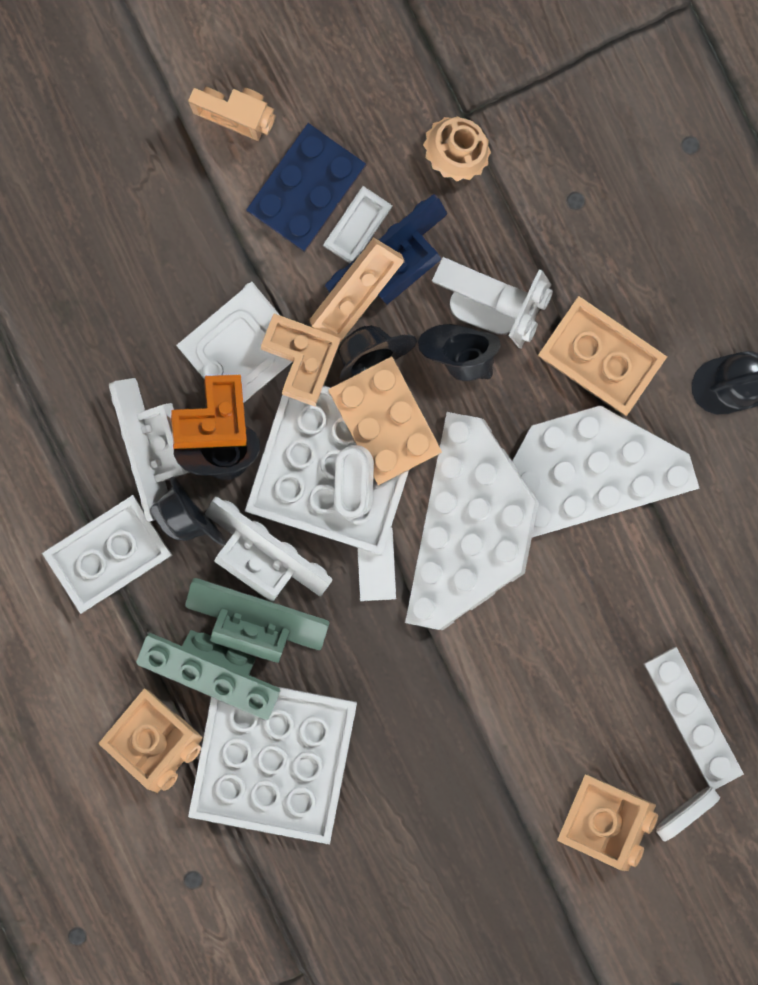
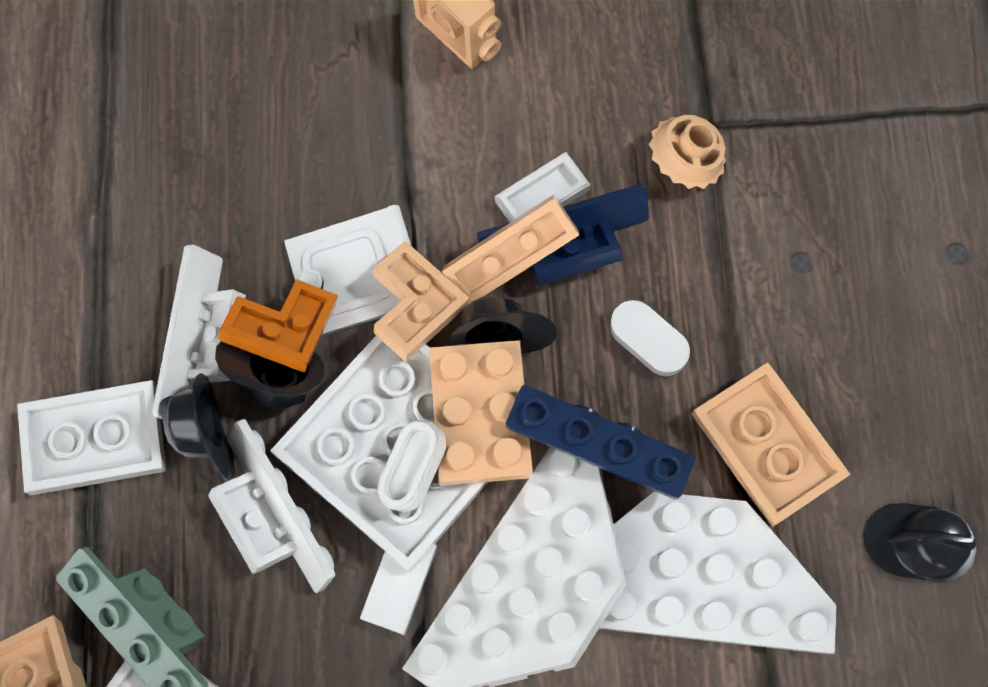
camera: 30 degrees right, 15 degrees down
(254, 623) = (219, 591): sand green bracket -> none
(306, 187) = (502, 132): dark blue plate -> none
(462, 350) = (604, 372): black piece -> none
(480, 409) = (600, 442): none -> dark blue bracket
(499, 296) = (696, 345): white piece -> none

